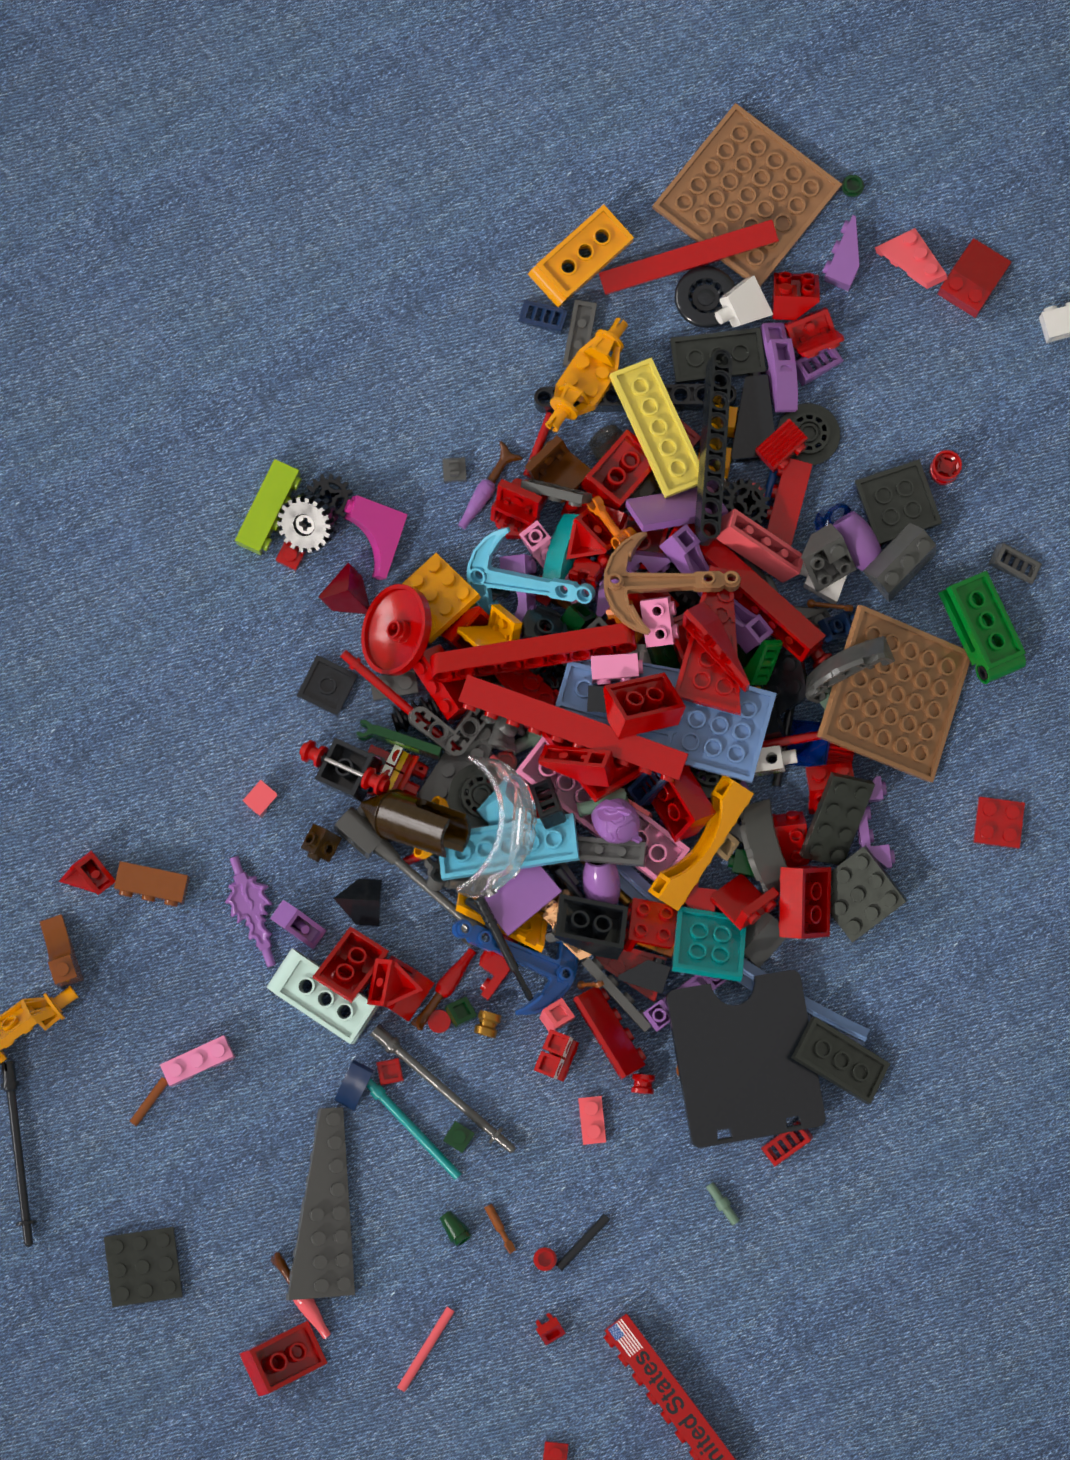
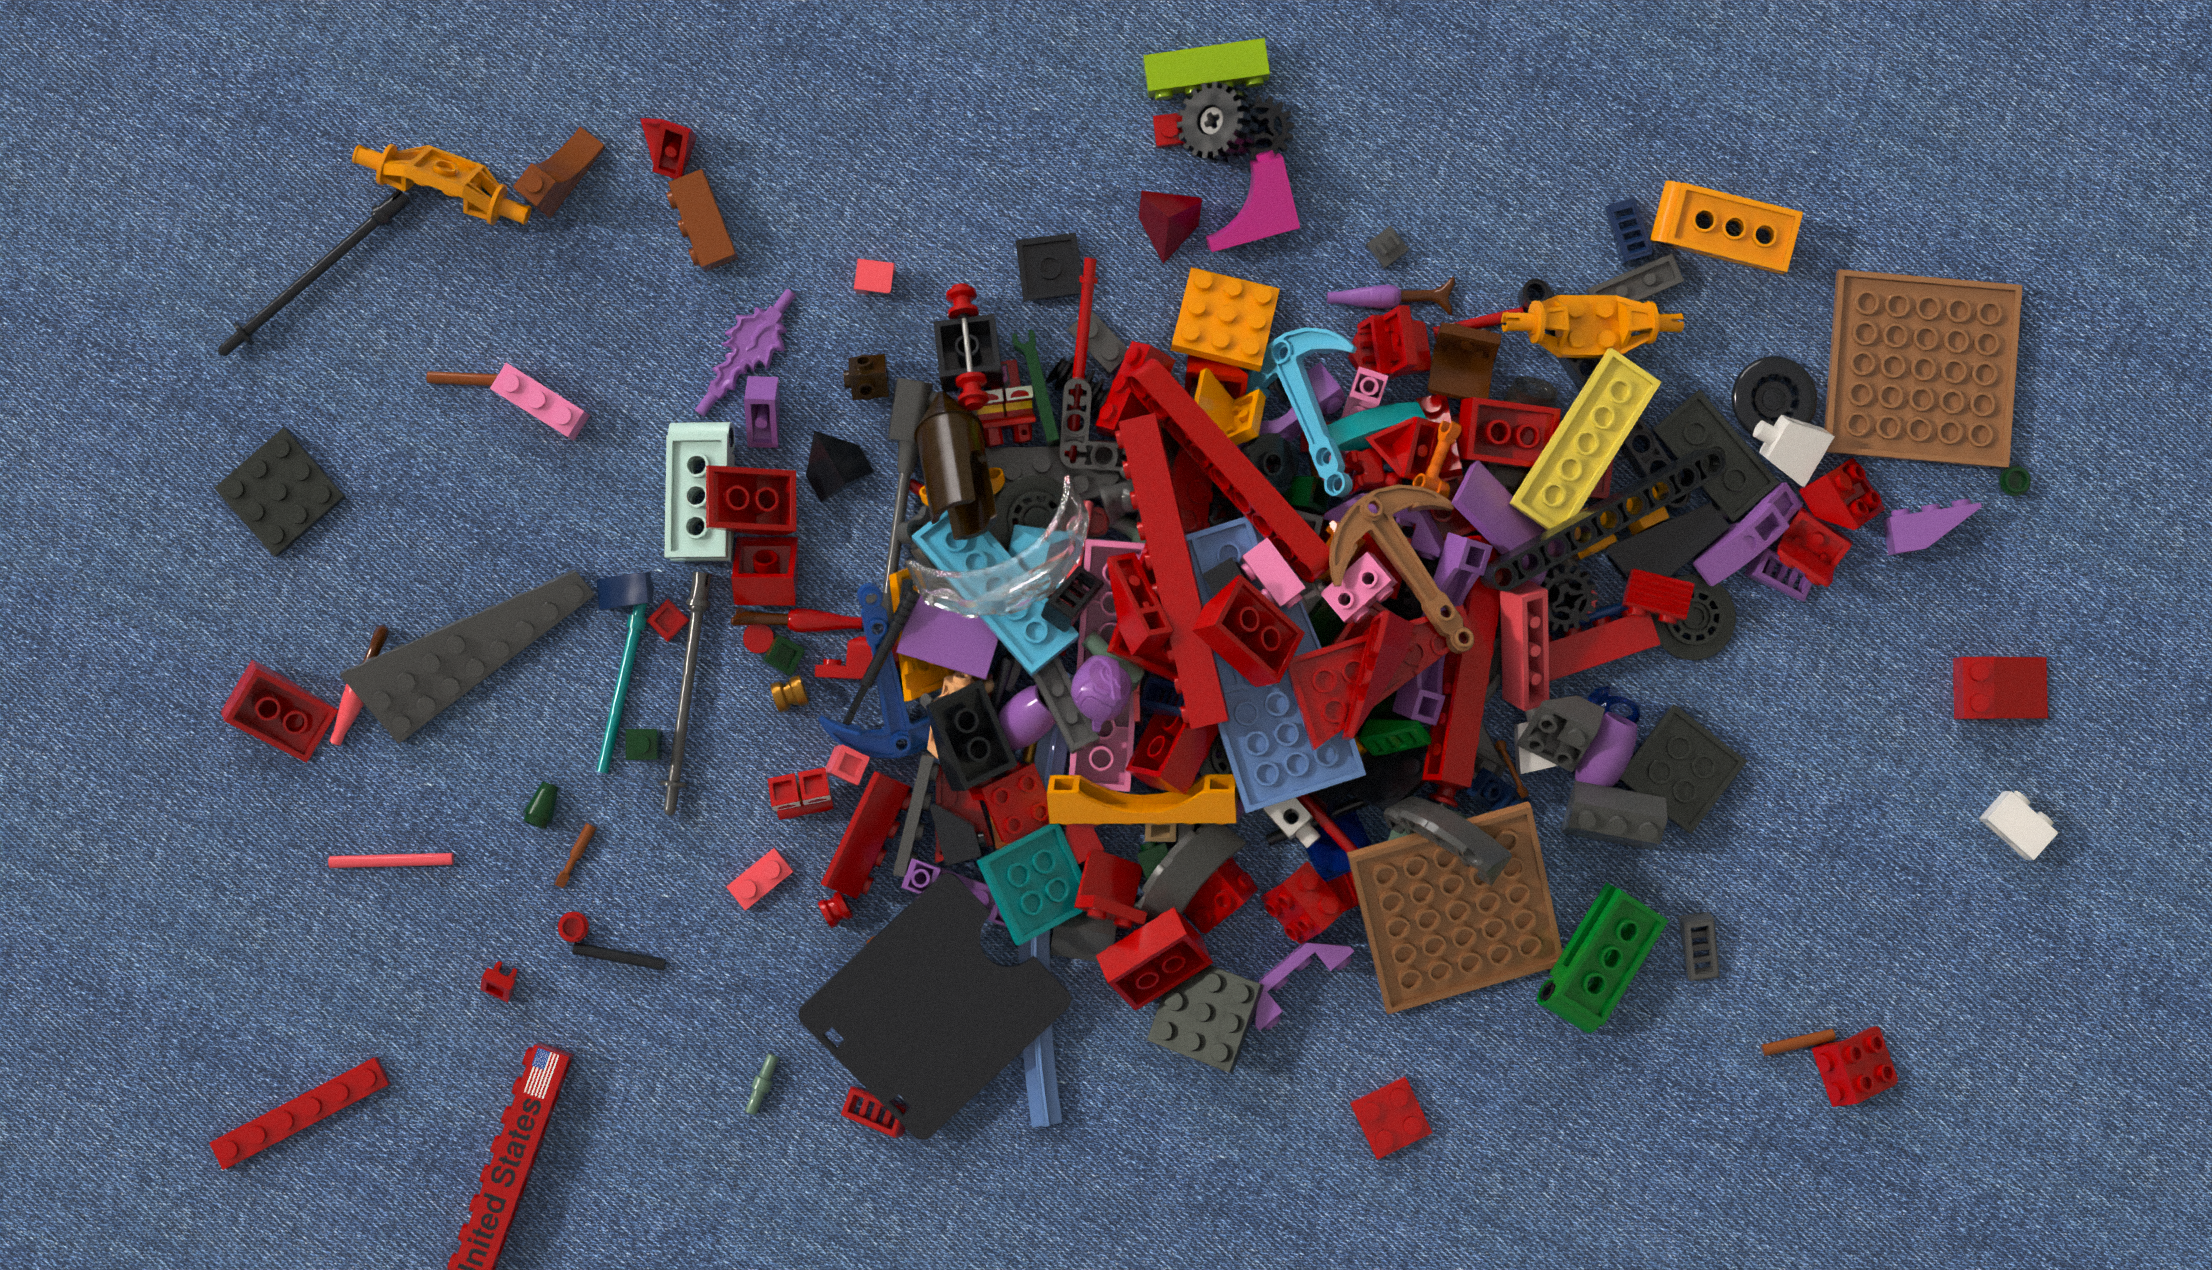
camera: 60 degrees right, 5 degrees up
(390, 984) = (756, 557): red slope -> none
(396, 630) = (1159, 301): red dish -> none
(557, 492) = (1435, 377): dark grey plate -> none
(581, 984) = (902, 769): dark orange hinge -> none
(688, 257) = (1807, 349): red tile -> none
(837, 818) = (1272, 934): pearl dark grey plate -> none
(840, 1060) = (1004, 1113): pearl dark grey plate -> none
(914, 257) = (1978, 604): coral wing -> none
(945, 467) = (1757, 797): red wheel -> none

